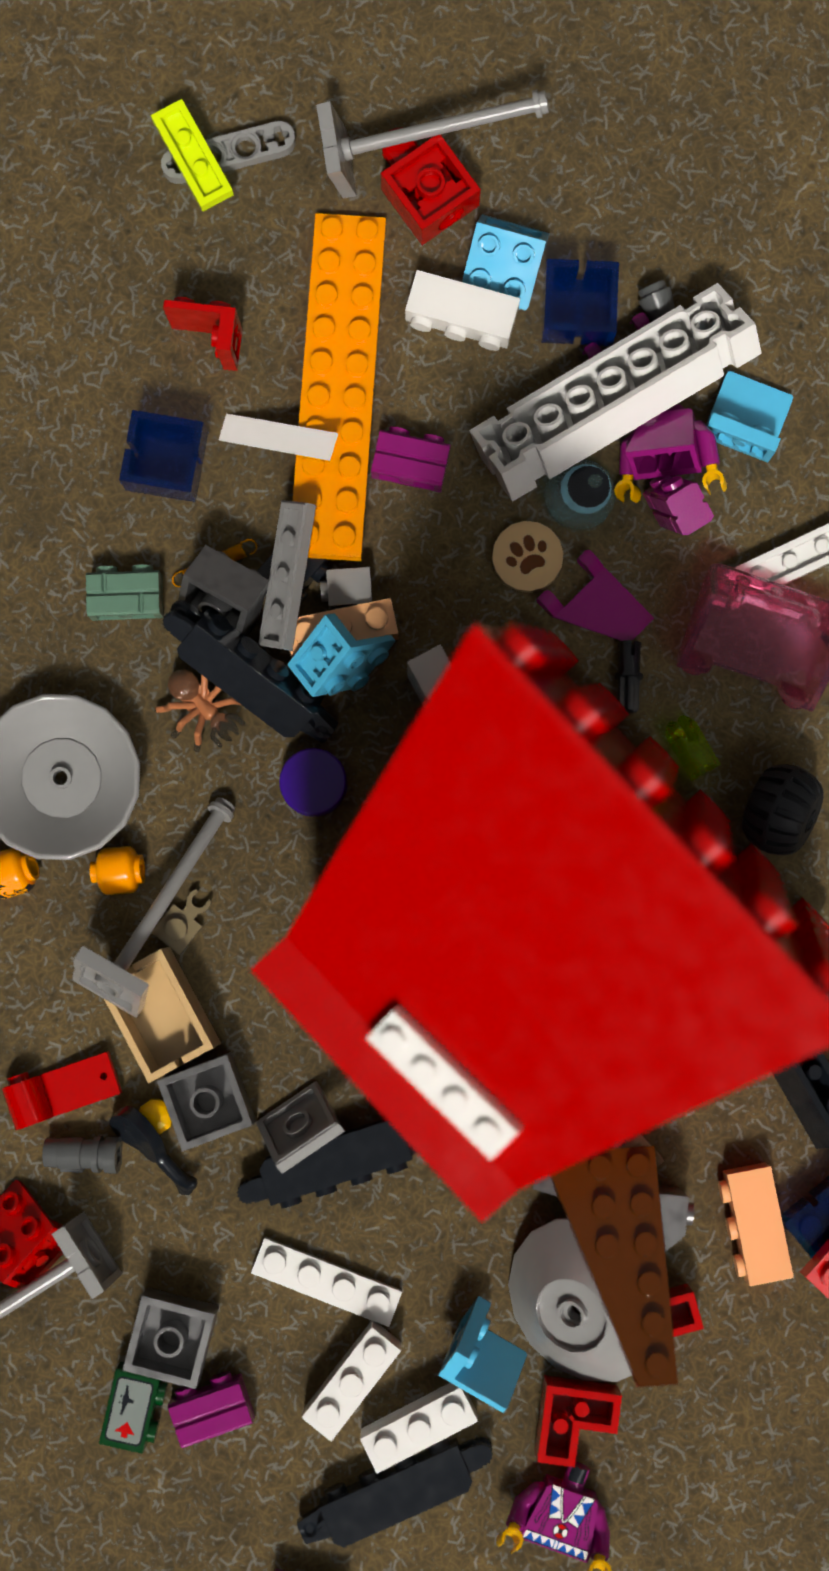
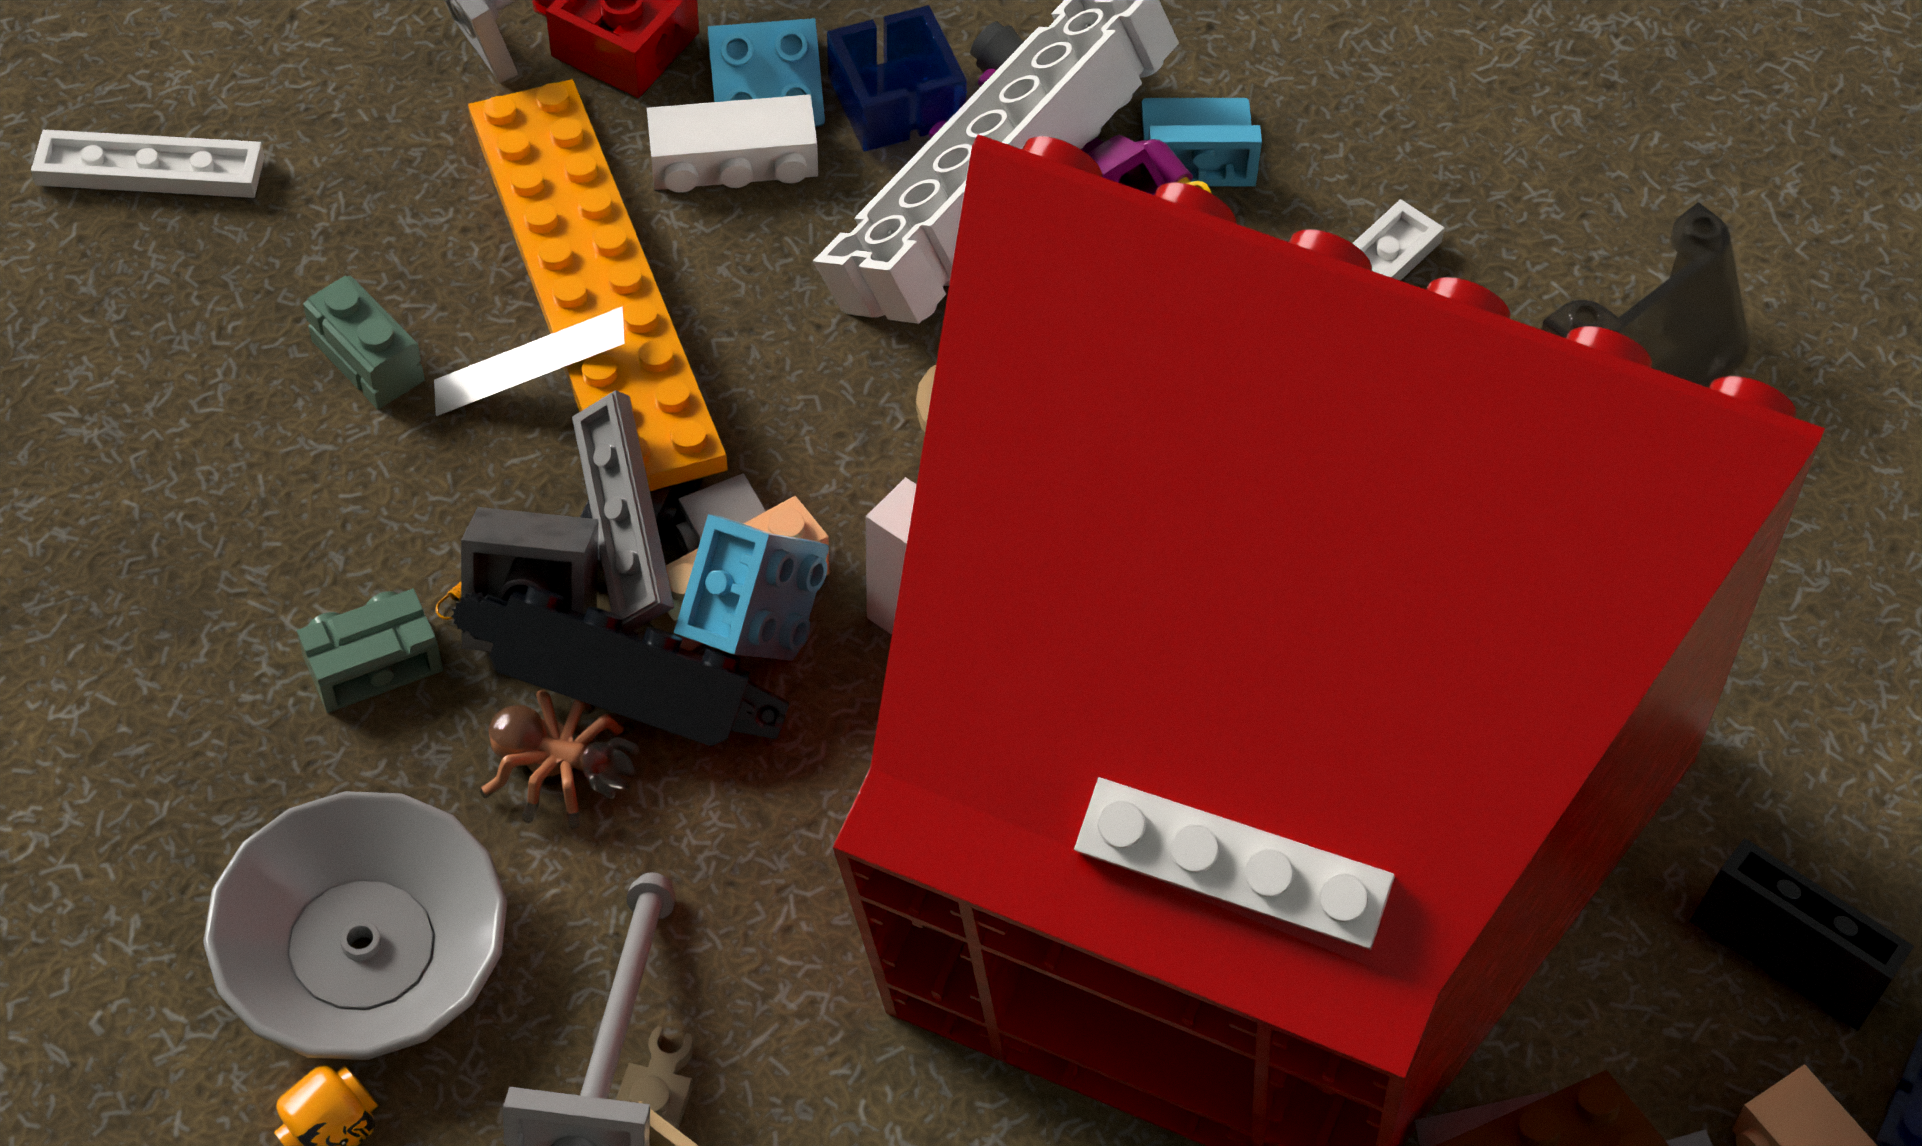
camera: 25 degrees left, 30 degrees down
(110, 186) = (148, 163): none -> white plate
(118, 870) = (513, 1040): light orange head -> none
(167, 456) = (361, 443): clear blue piece -> none
(190, 378) = (363, 341): none -> sand green brick
(192, 155) = (260, 82): neon yellow plate -> none
(215, 318) = (369, 247): red bracket -> none
(228, 143) = (306, 74): light grey beam -> none
(313, 782) = (785, 801): dark purple head -> none
(410, 459) = (743, 337): magenta brick -> none

